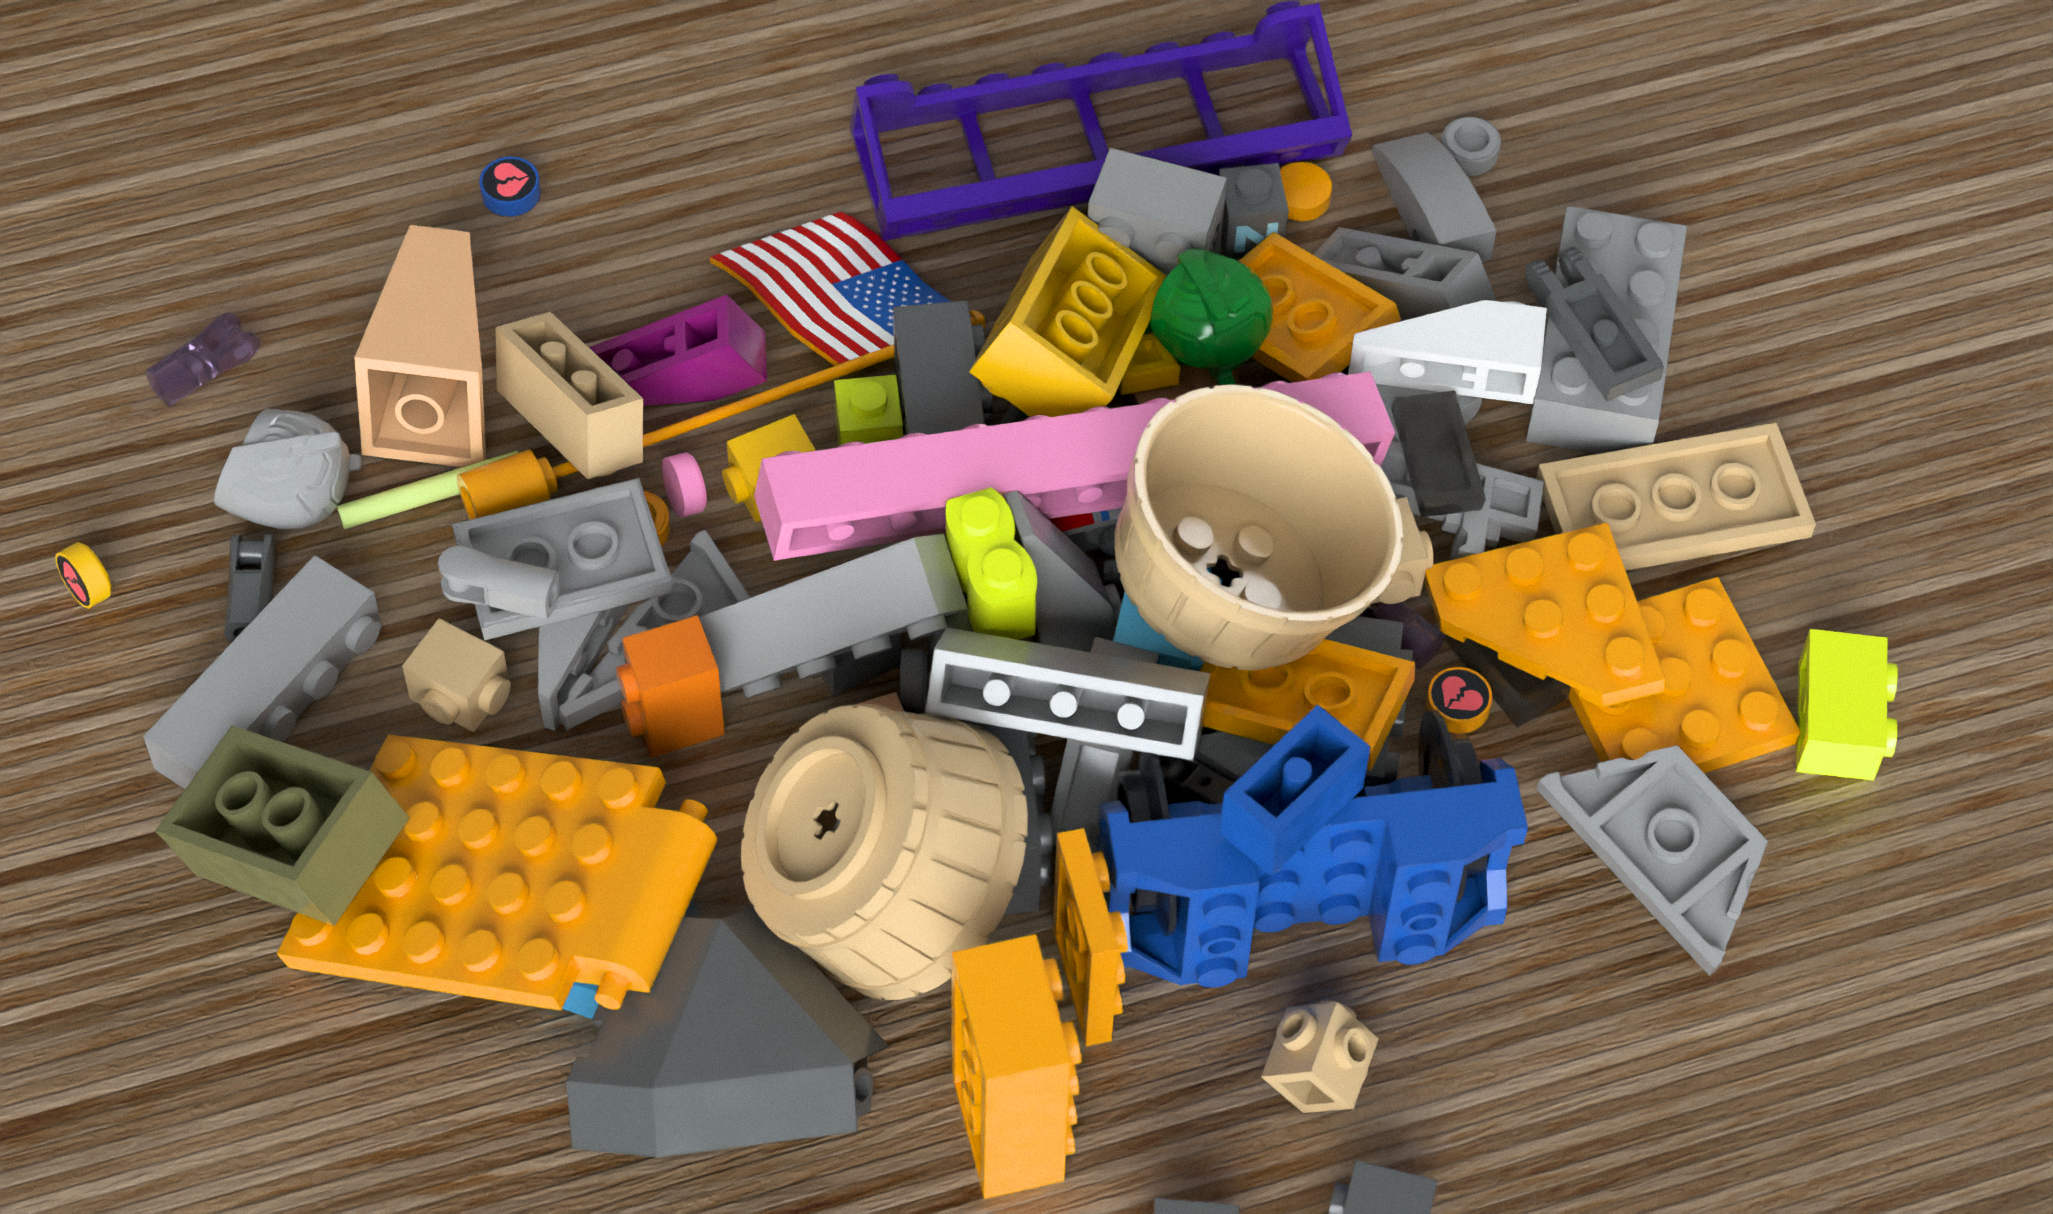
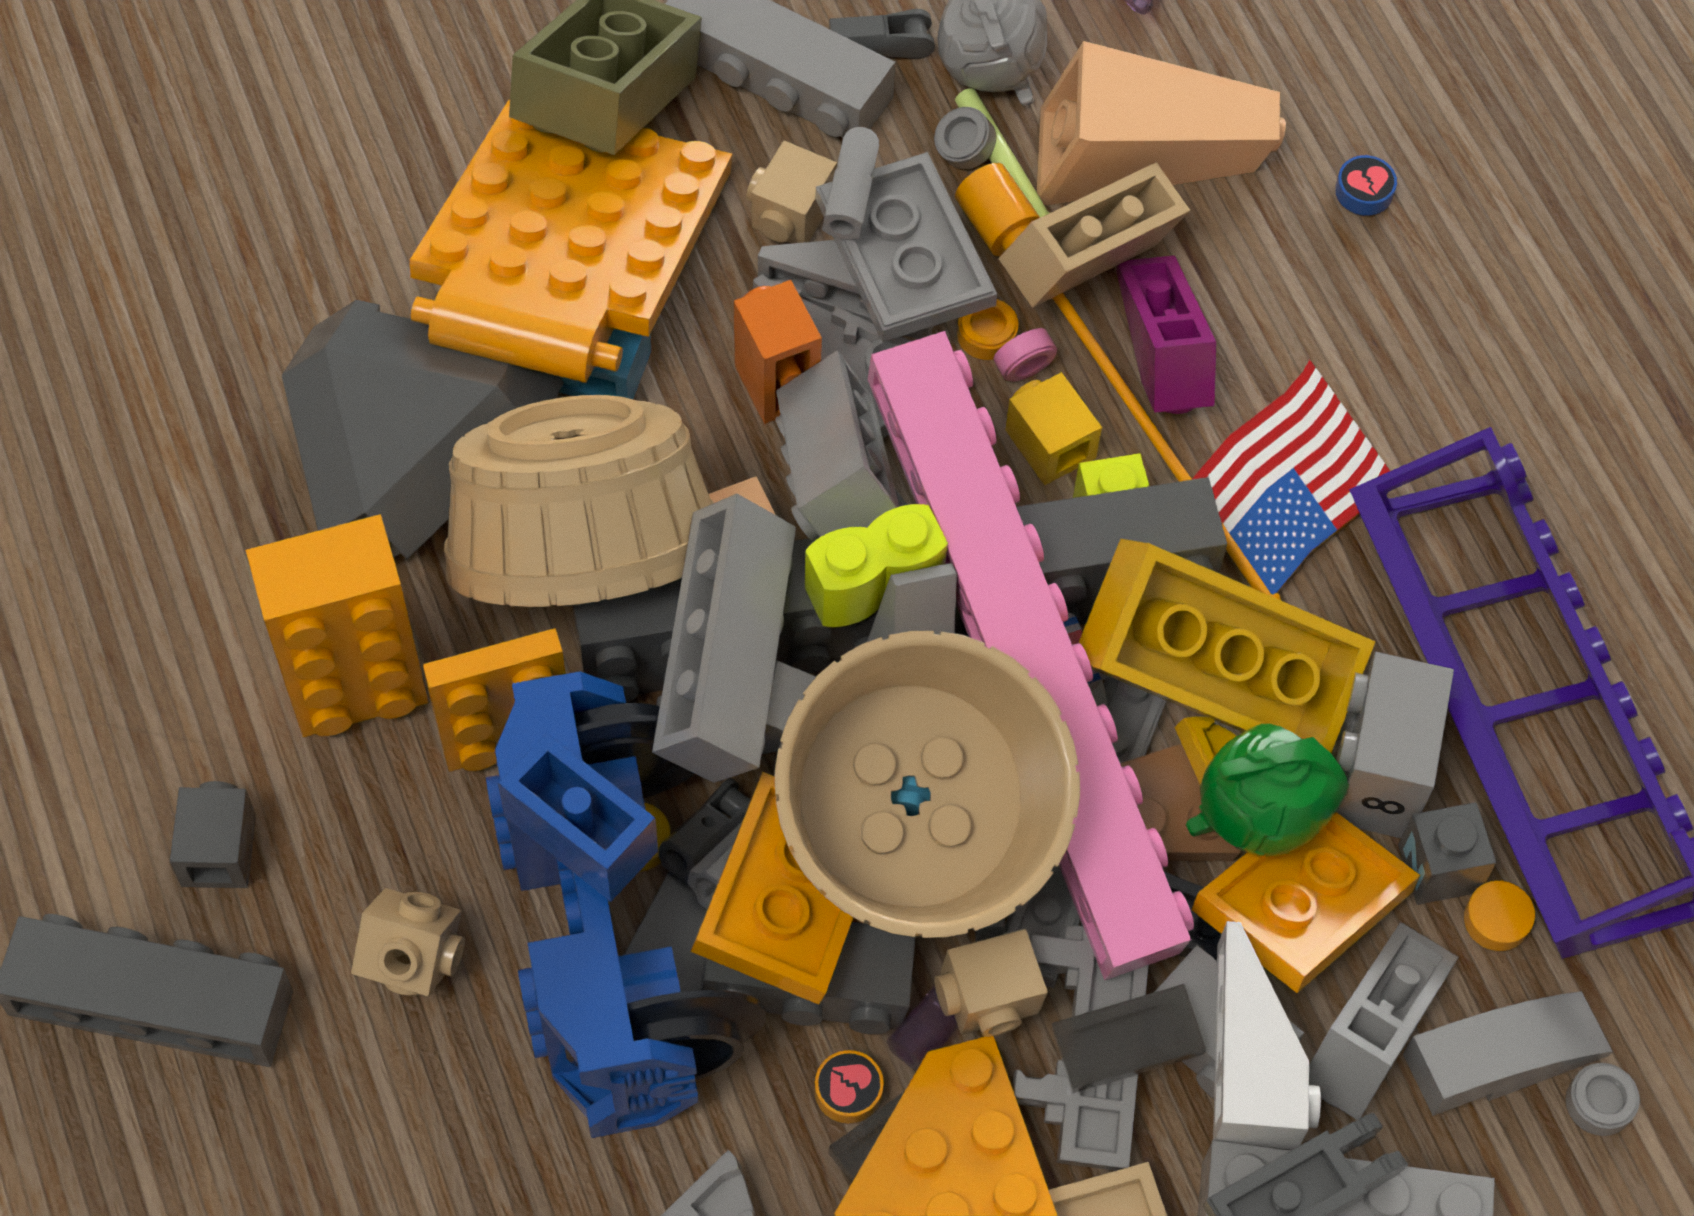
camera: 85 degrees right, 5 degrees up
(402, 517) = (965, 138): none -> light grey tile

